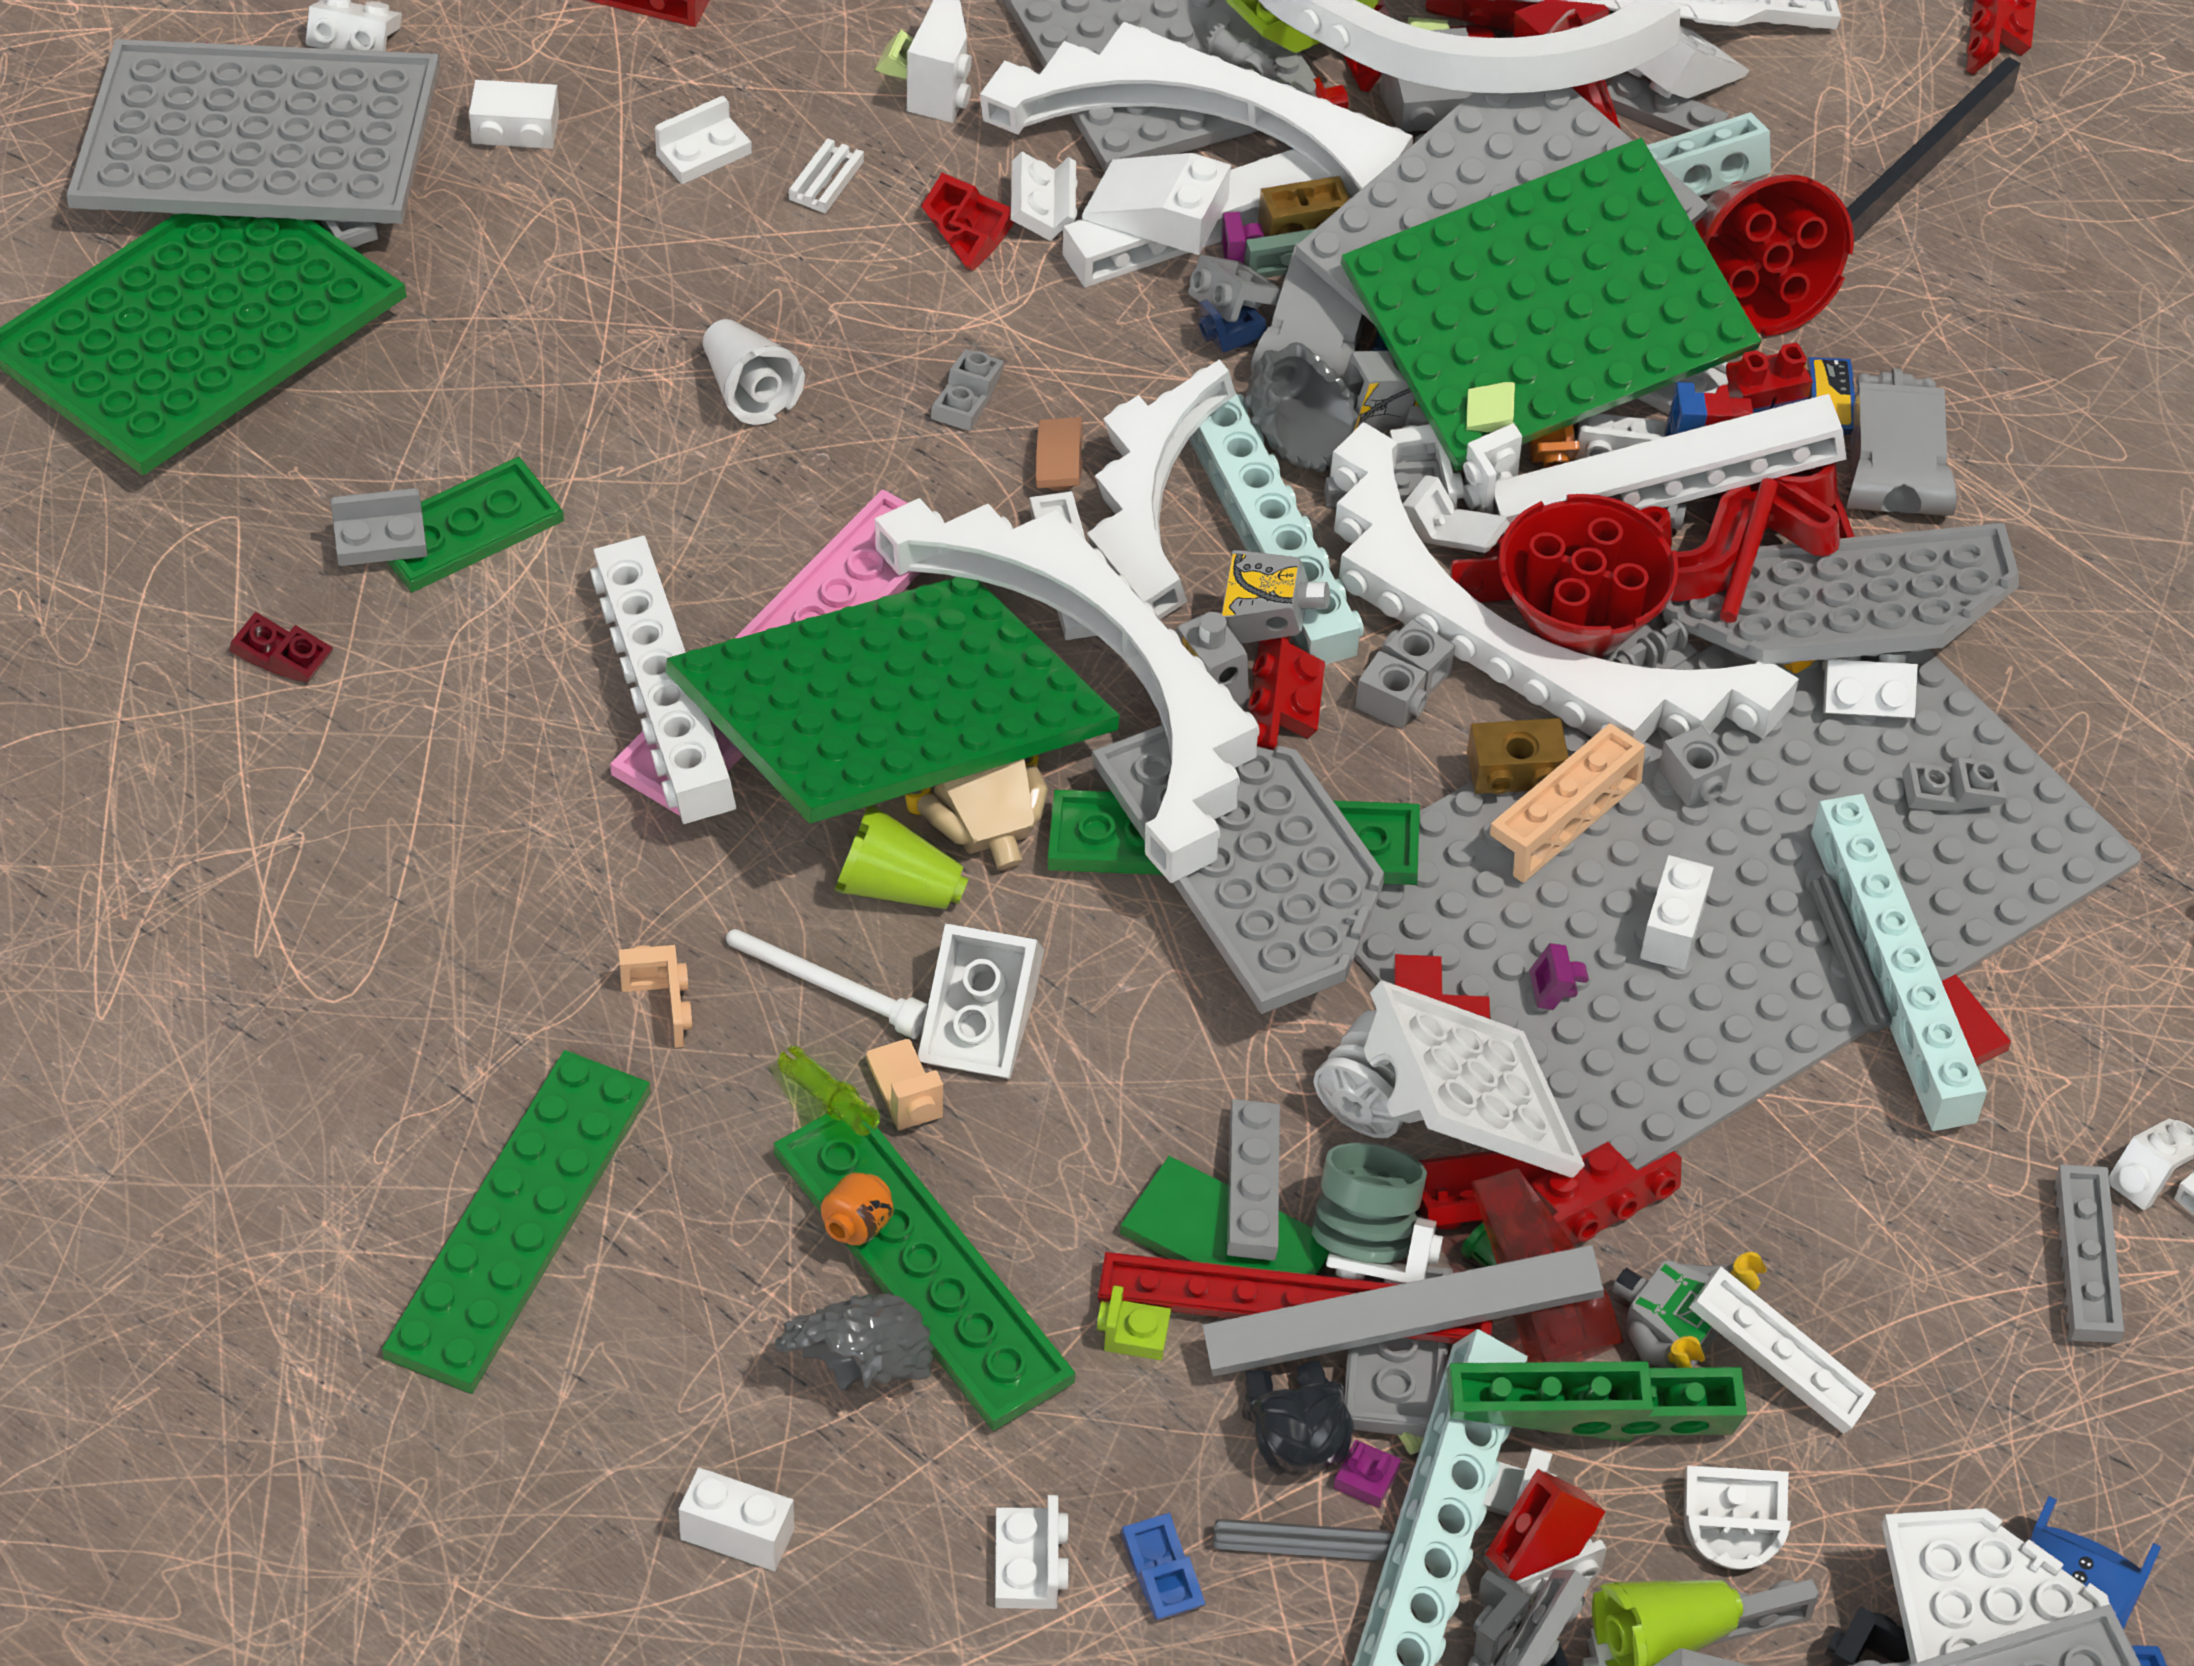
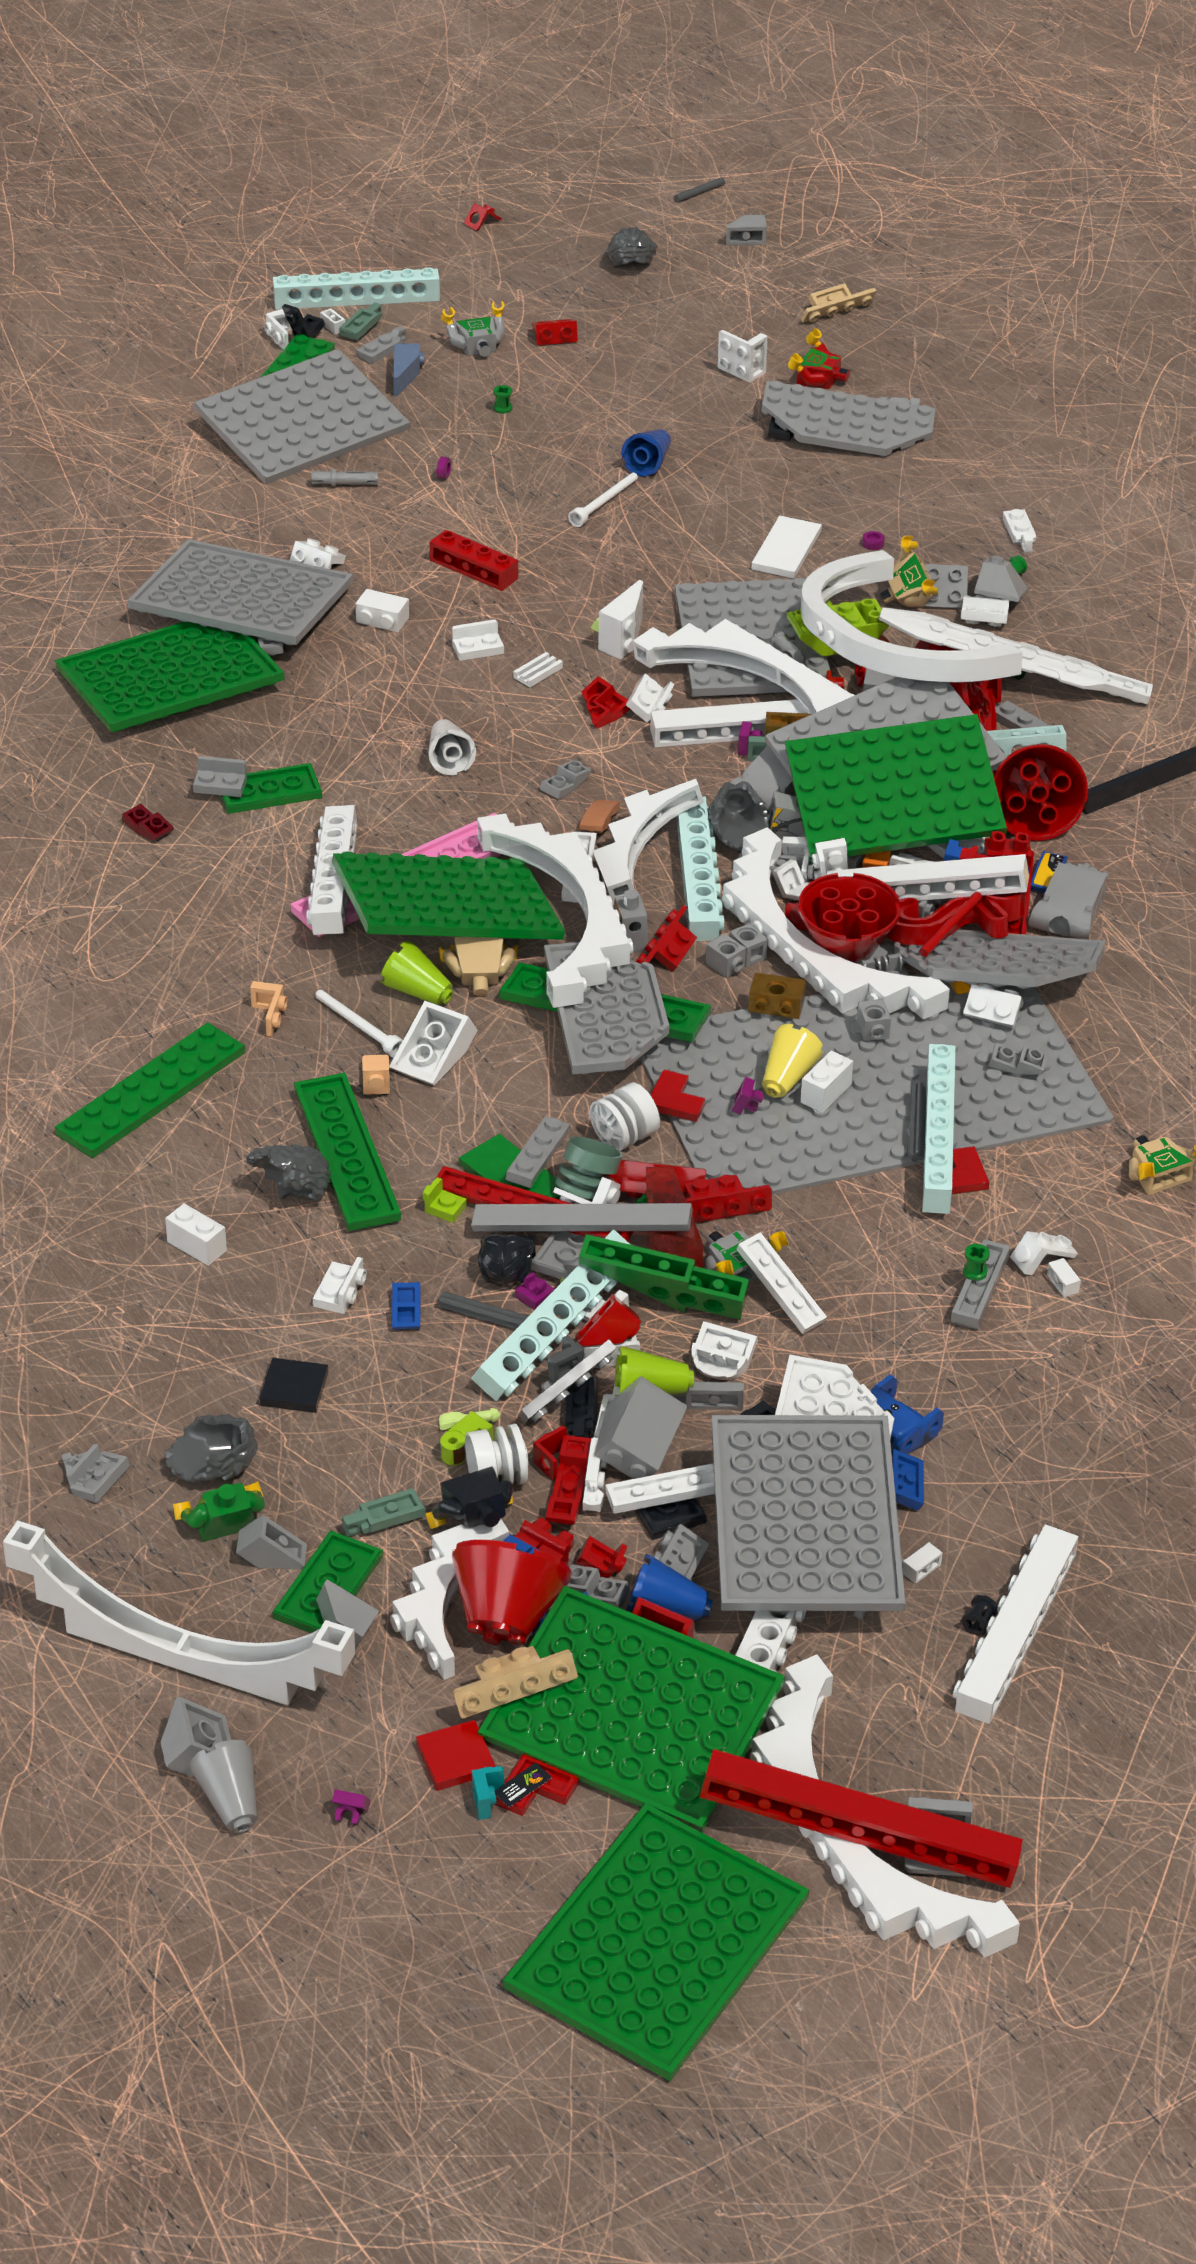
camera: 20 degrees right, 10 degrees down
(838, 1098) = (333, 1066): clear neon green pin -> none
(857, 1208) = (319, 1114): orange head -> none
(1162, 198) = (711, 707): white slope -> none
(1227, 334) = (720, 777): dark blue bracket -> none
(1229, 285) = (726, 752): light grey bracket -> none
(1269, 596) = (672, 894): light grey torso -> none
(1468, 1079) = (665, 1120): white piece -> none
(1490, 407) = (836, 828): yellowish green slope -> none
(1570, 799) = (797, 1012): light nougat fence -> none
(1601, 887) = (790, 1059): none -> light yellow cone
(1690, 67) = (1040, 697): white slope -> none
(2083, 1216) = (975, 1266): none -> green bush

